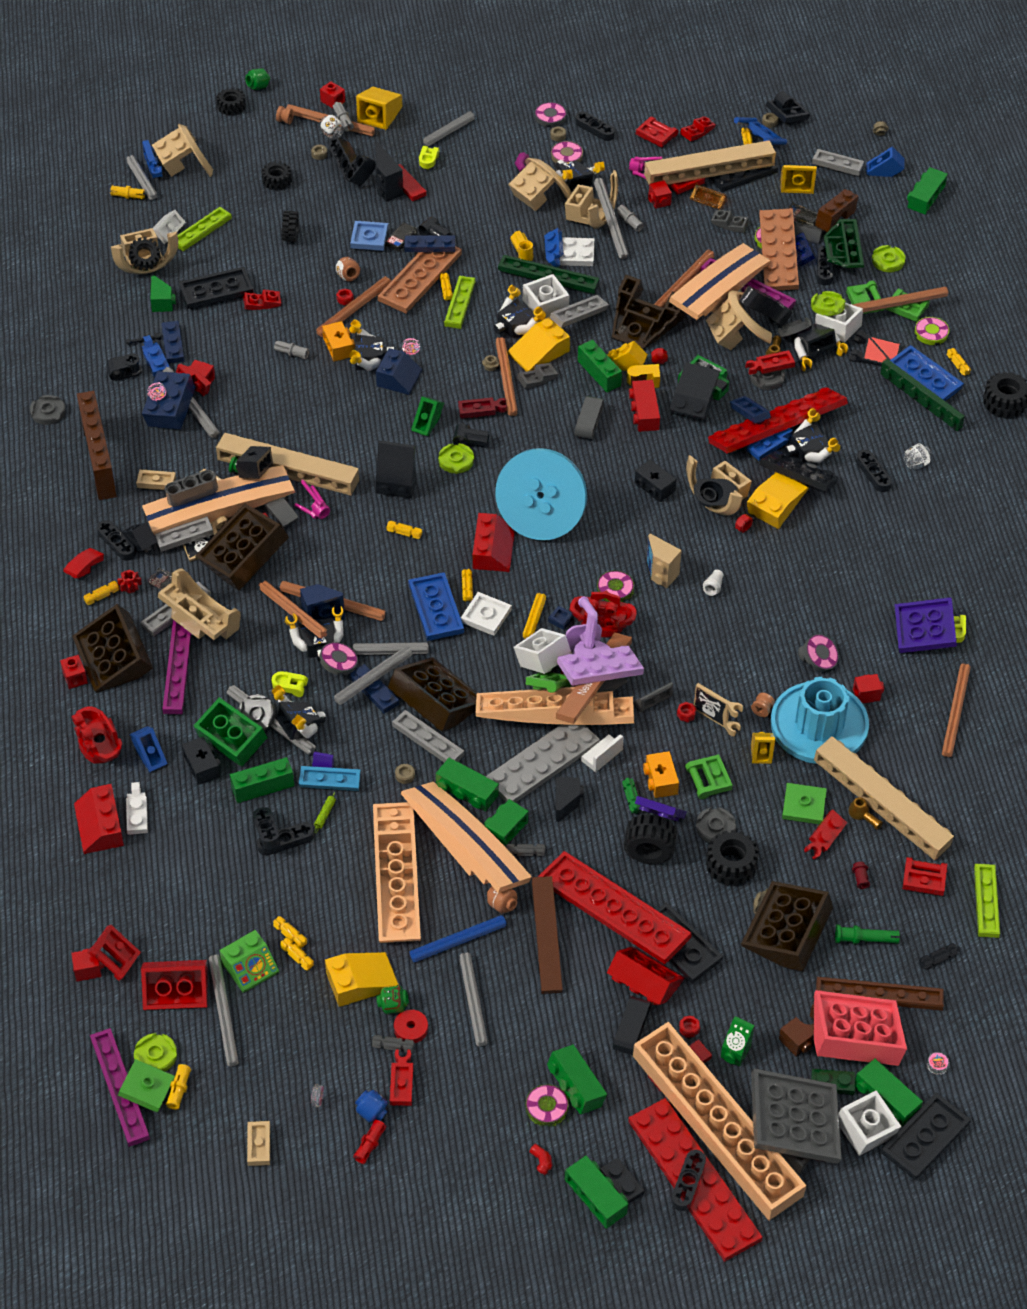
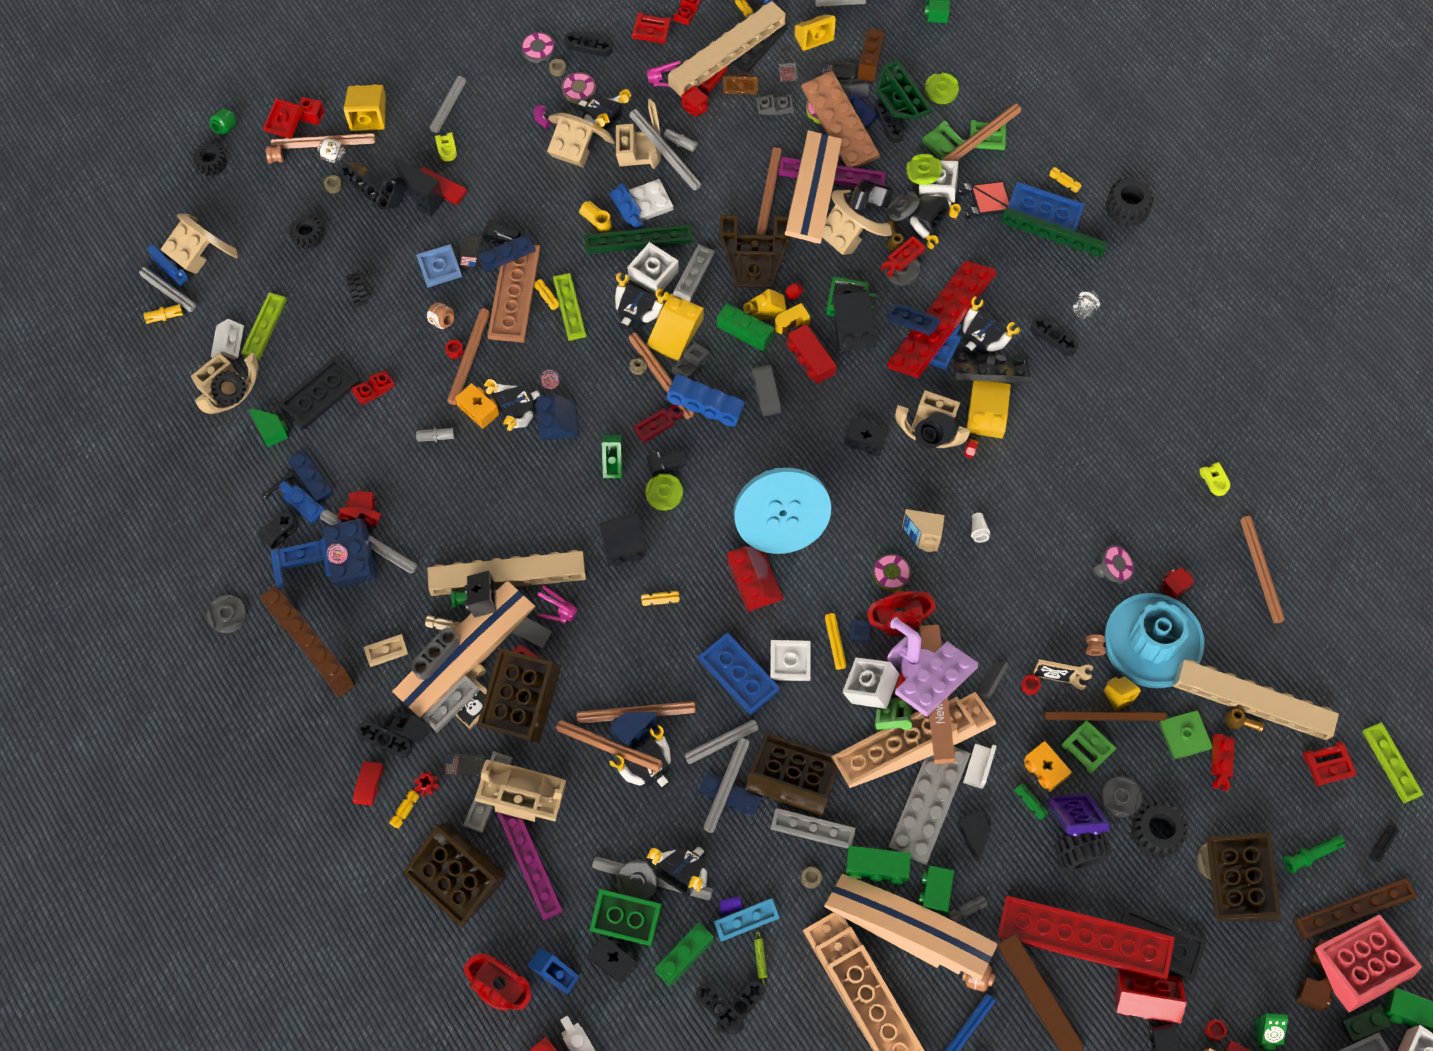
camera: 25 degrees left, 15 degrees up
(73, 671) = (429, 916): red brick -> none
(124, 390) = (298, 556): none -> blue plate
(286, 679) = (640, 830): neon yellow plate -> none
(306, 92) = (283, 118): none -> red tile
(338, 658) = (682, 781): tile -> none
(343, 116) = (336, 133): light grey axle -> none
(467, 585) = (754, 634): yellow axle -> none
(530, 403) = (702, 399): none -> blue brick
(737, 757) = (1104, 715): none -> reddish brown tile
(756, 202) = (787, 72): none -> clear tile
(860, 872) = (1275, 789): dark red pin -> none
(925, 625) = (1192, 491): dark purple plate -> none
(931, 330) = (1023, 154): tile -> none

